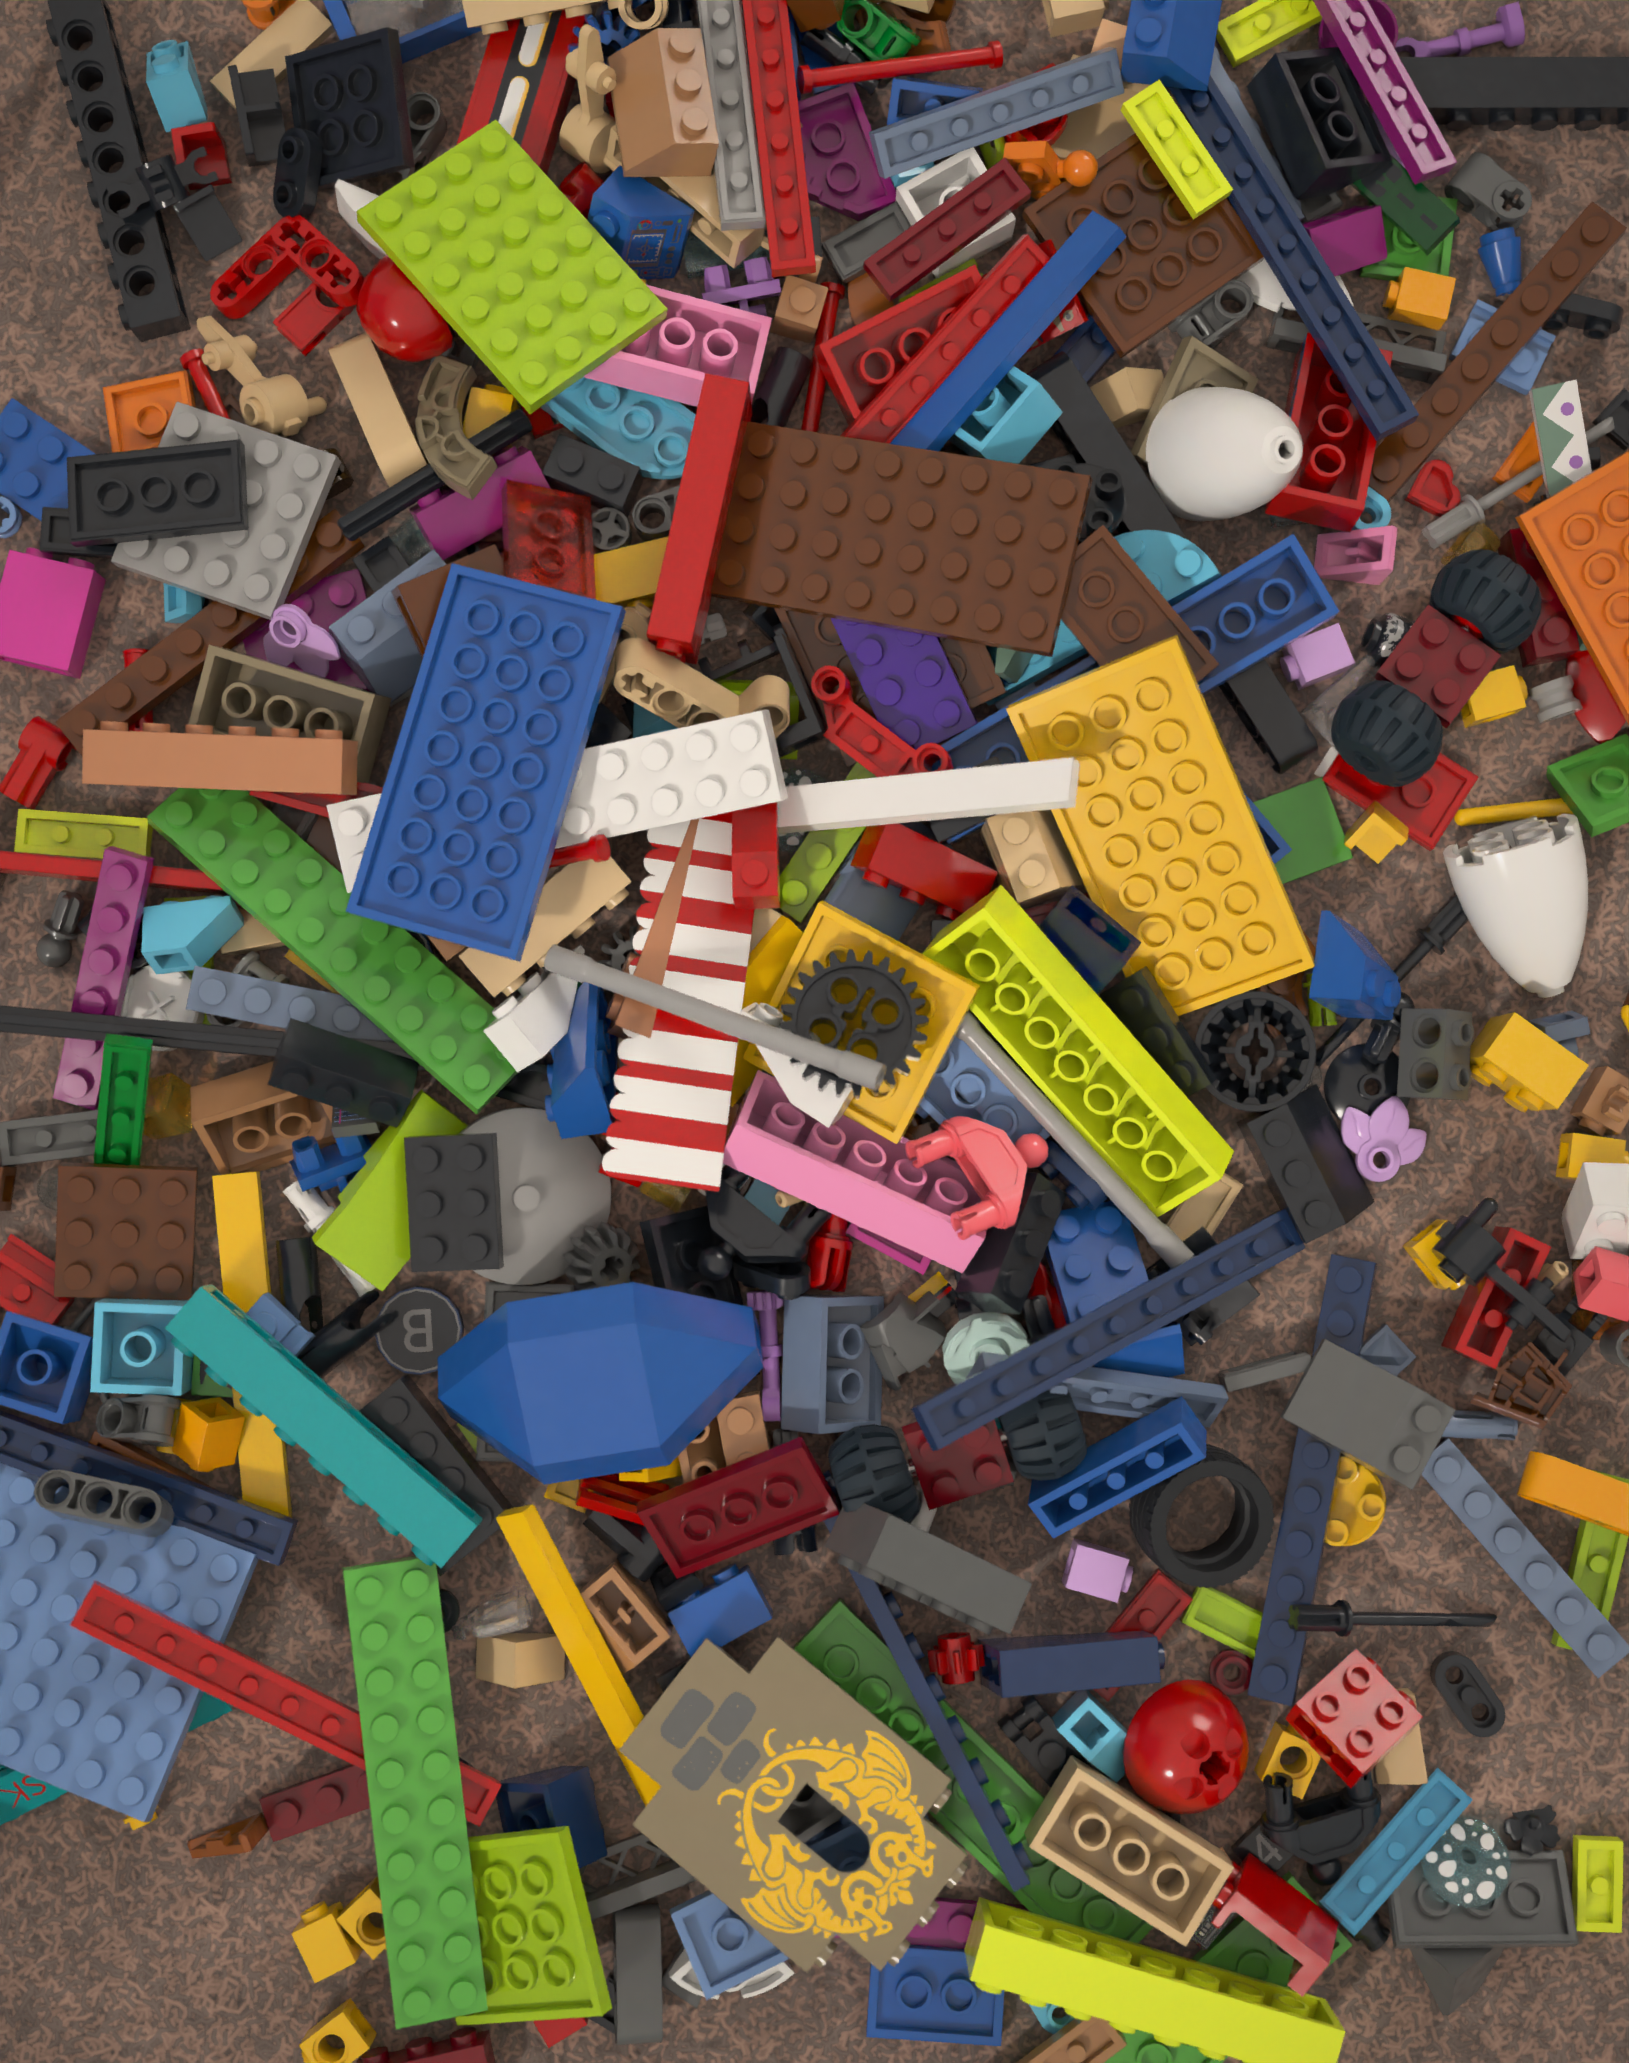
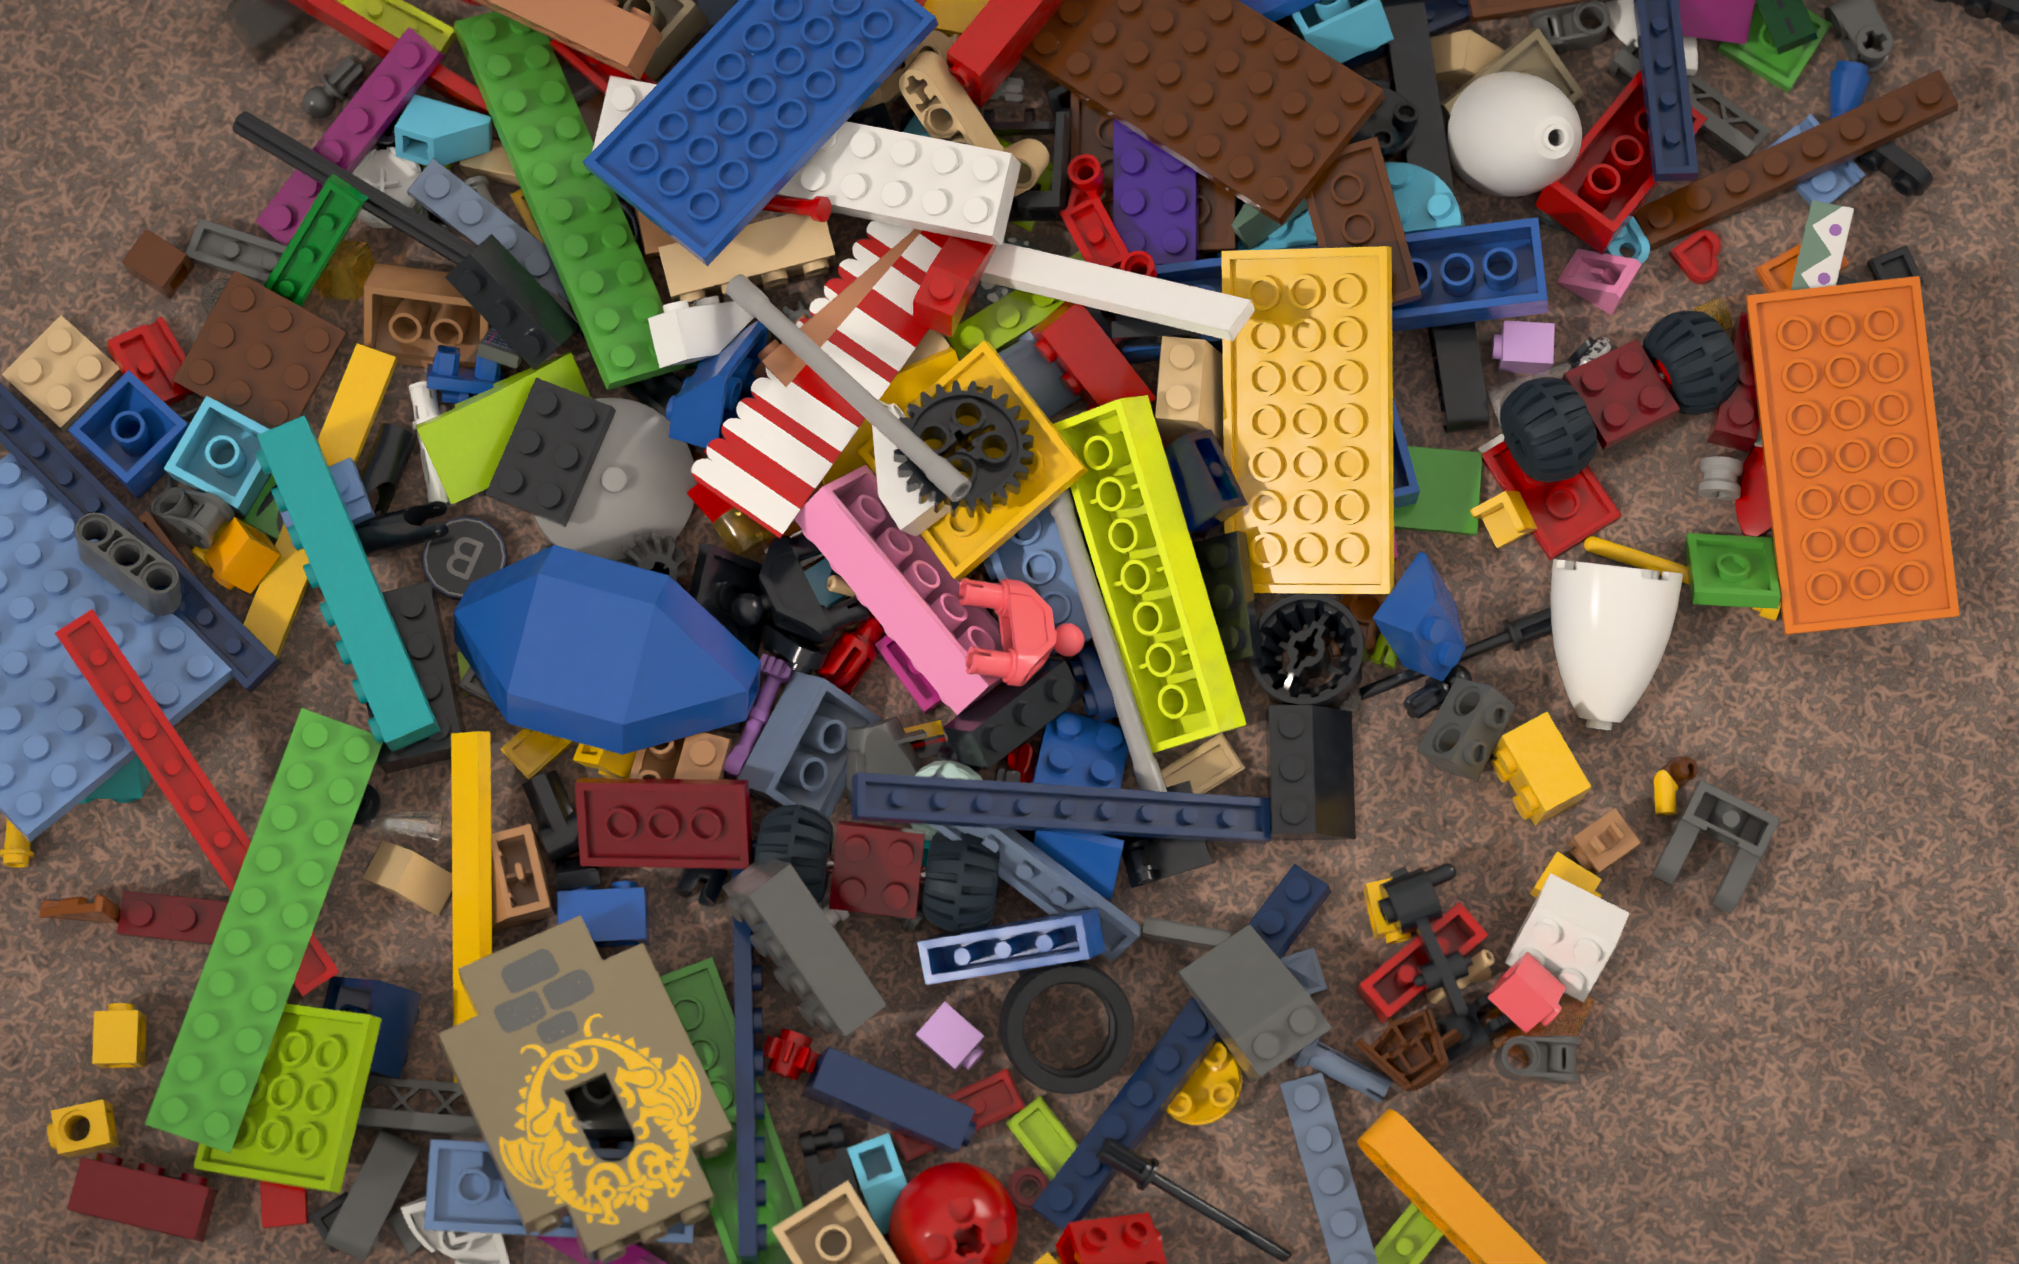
camera: 25 degrees right, 10 degrees down
(356, 1921) = (157, 1028): yellow brick -> none
(621, 1493) = (556, 765): red tile -> none
(1346, 1081) = (1380, 751): black dish -> none
(1385, 1133) = (1392, 780): lavender plate -> none
(1419, 298) = (1758, 89): light orange brick -> none
(1471, 511) = (1714, 286): light grey piece -> none
(1496, 697) = (1664, 451): yellow brick -> none
(1564, 1028) = (1592, 763): sand blue tile -> none

